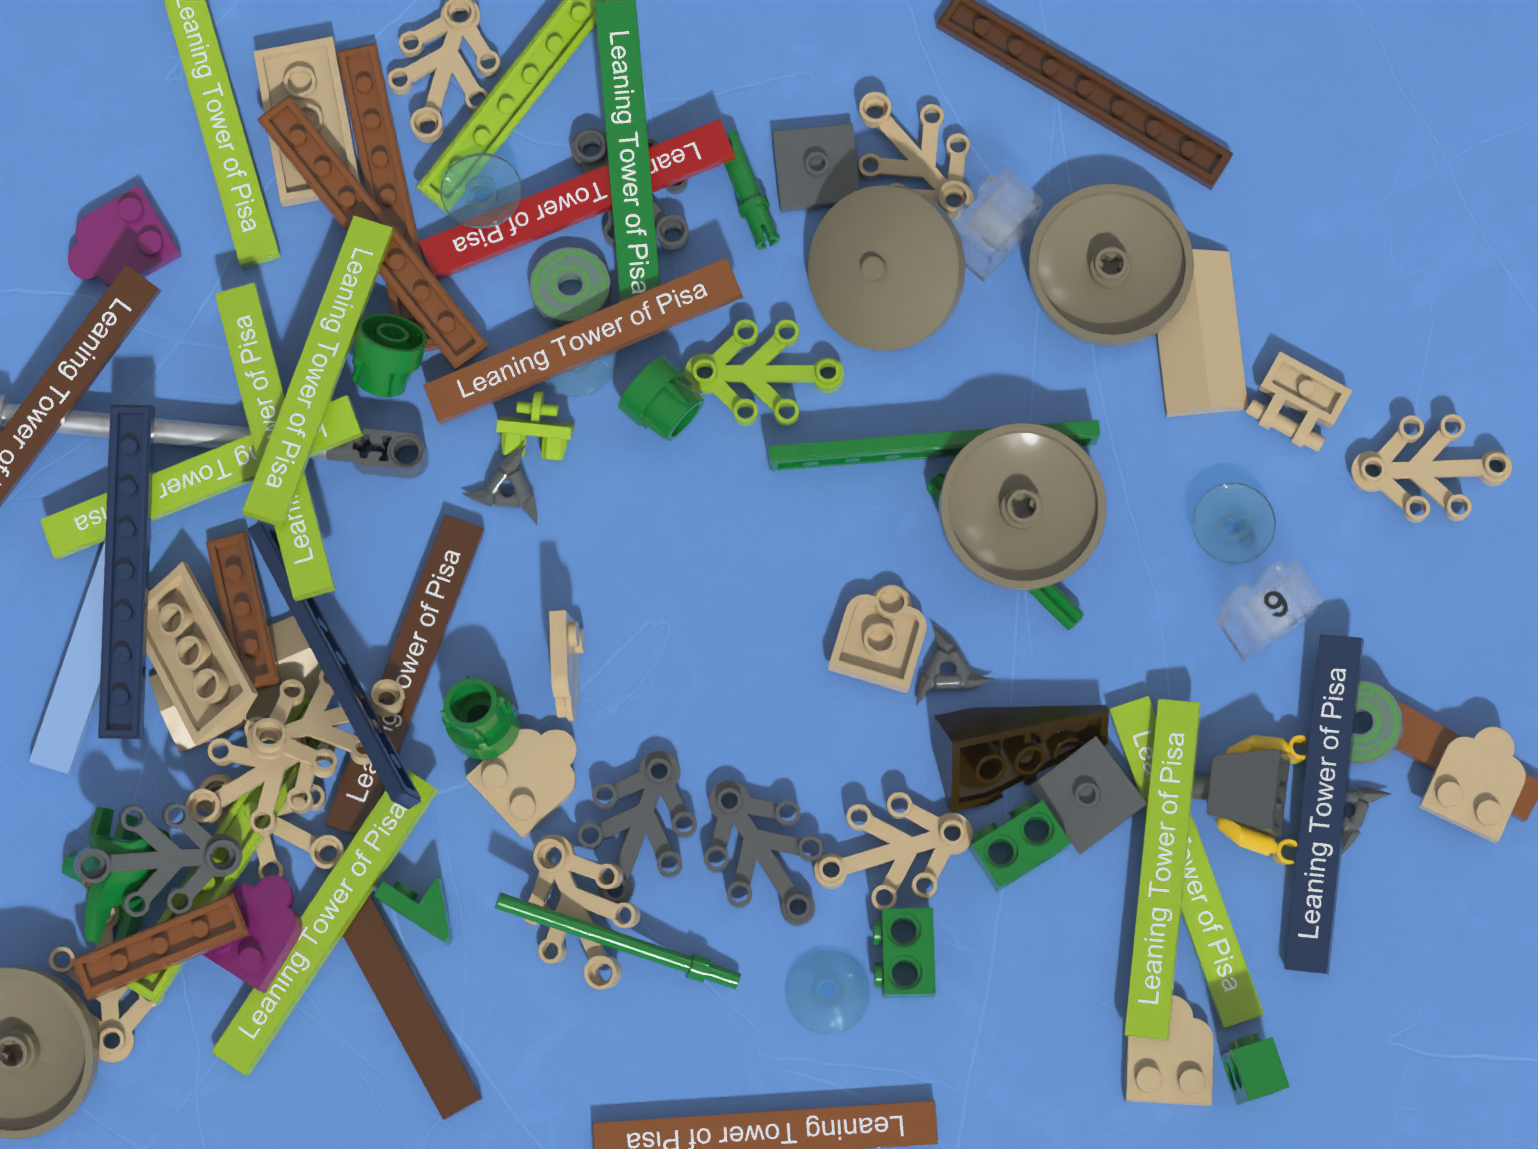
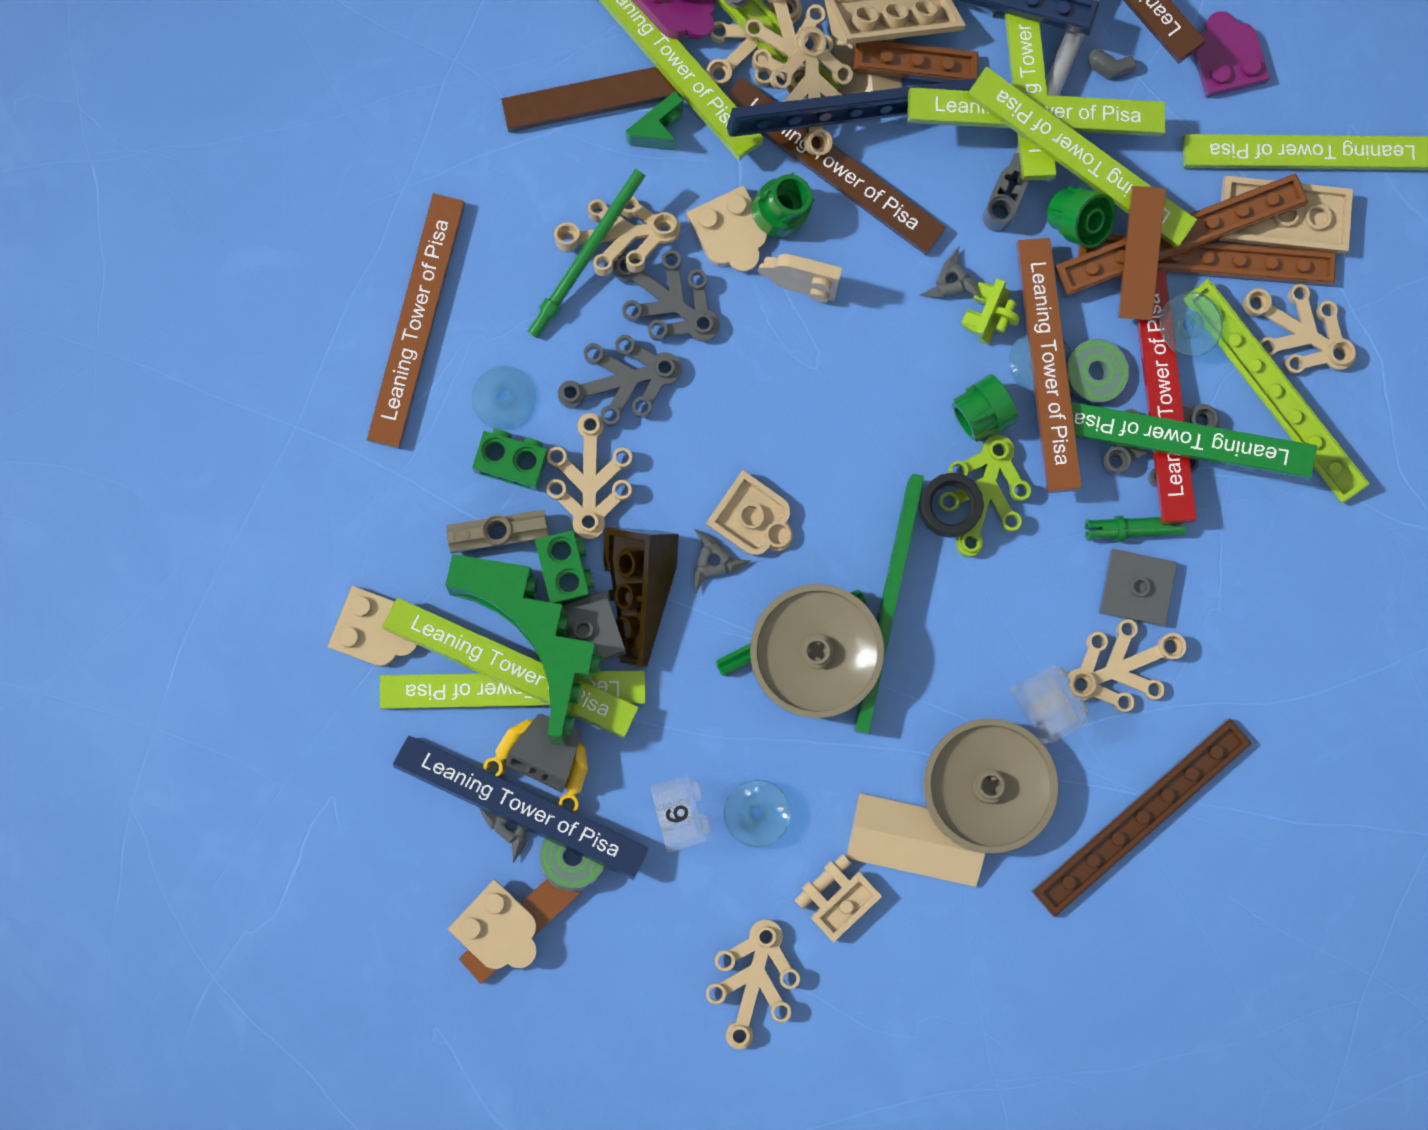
camera: 100 degrees right, 5 degrees up
(178, 380) = (1108, 66): none -> dark grey arm
(415, 268) = (1141, 252): none -> dark orange tile
(794, 372) = (955, 480): none -> black tyre
(886, 267) = (1038, 608): dark tan dish -> none
(1013, 965) = (475, 534): none -> dark tan piece
(1073, 902) = (507, 591): none -> green arch
(1254, 1068) = (338, 682): green brick -> none

